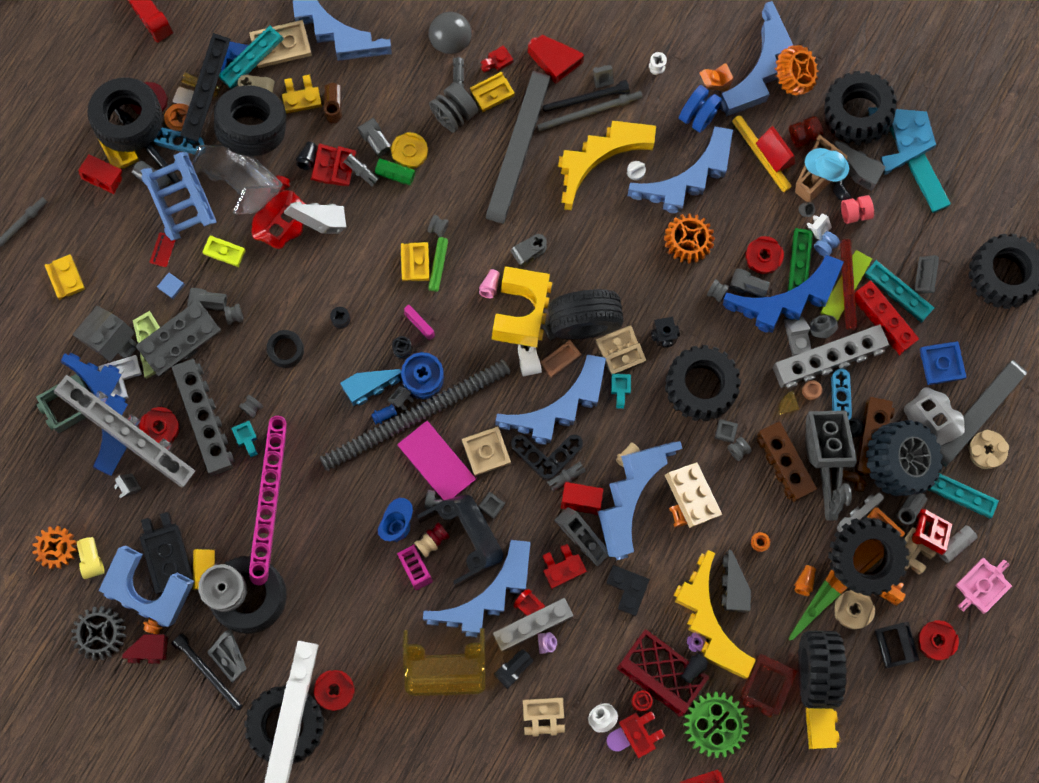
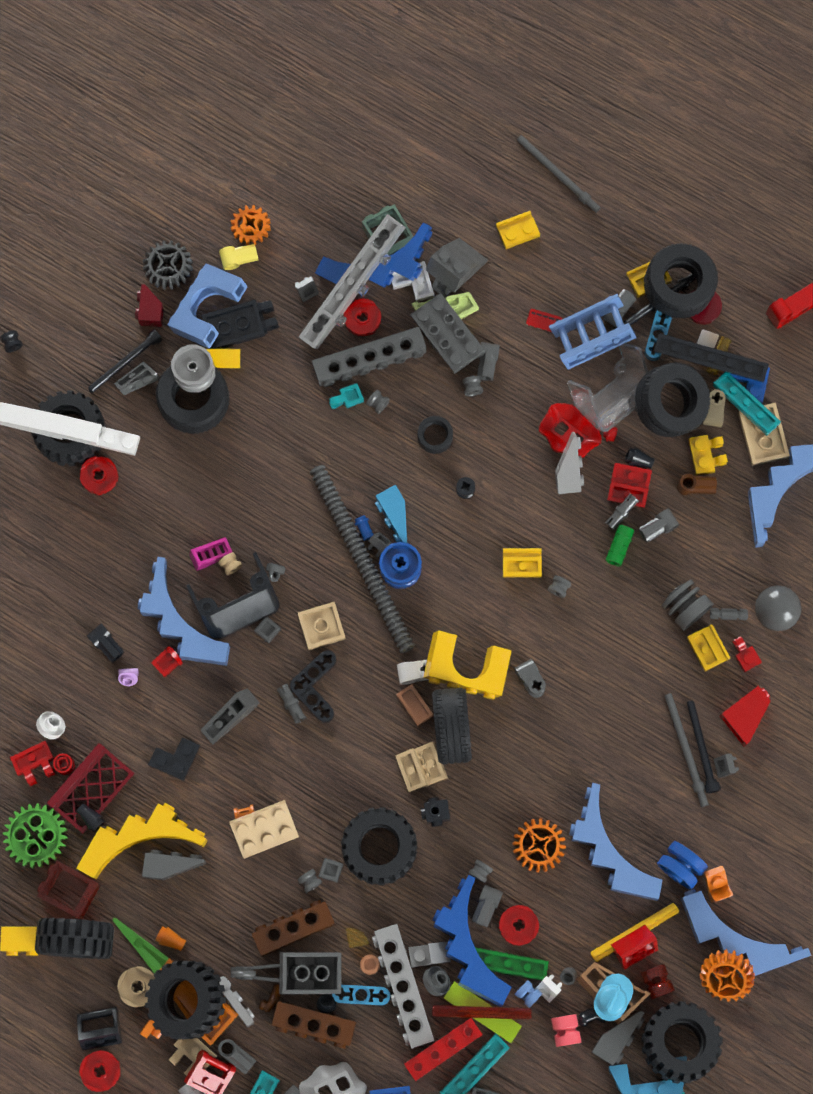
camera: 100 degrees right, 0 degrees up
(100, 174) = (623, 260): red hinge -> none
(152, 626) = (169, 311): orange plate -> none
(170, 285) = (505, 327): medium blue tile -> none
(171, 116) = (685, 327): orange gear -> none
(224, 251) = (539, 377): neon yellow plate -> none
(268, 507) = (272, 417): dark pink beam -> none
(396, 520) = (254, 535): blue piece -> none
(403, 351) = (431, 550): black wheel -> none
(409, 150) = (644, 561): yellow tile -> none
(416, 319) = (457, 564): dark pink tile -> none
(436, 462) = (314, 577): dark pink tile -> none
(438, 264) = (519, 586): bright green axle -> none
(438, 534) = (240, 575): dark red wheel -> none
(444, 673) = (107, 575): clear yellow windscreen -> none
(489, 285) = (496, 637): bright pink cone -> none
(518, 147) = (646, 672): dark grey beam -> none
(532, 625) = (144, 662): light grey arch -> none
(541, 422) = (379, 726): medium blue arch -> none
(542, 710) = (63, 669): tan plate -> none
(565, 570) = (197, 697): red plate -> none
(582, 498) = (268, 717): red hinge -> none
(617, 520) = (293, 776): medium blue arch -> none
(617, 740) = (29, 738): medium lavender tile -> none
(618, 139) = (640, 753): yellow arch -> none
(621, 386) = (382, 763): teal plate -> none
(630, 449) = (310, 766): tan pin -> none
(636, 170) = (618, 795): white tile -> none
(660, 58) = (745, 823): white bush -> none
(691, 642) = (117, 818): medium lavender plate -> none
(766, 542) = (213, 889): orange plate -> none
(904, 458) = (285, 1049): black wheel -> none

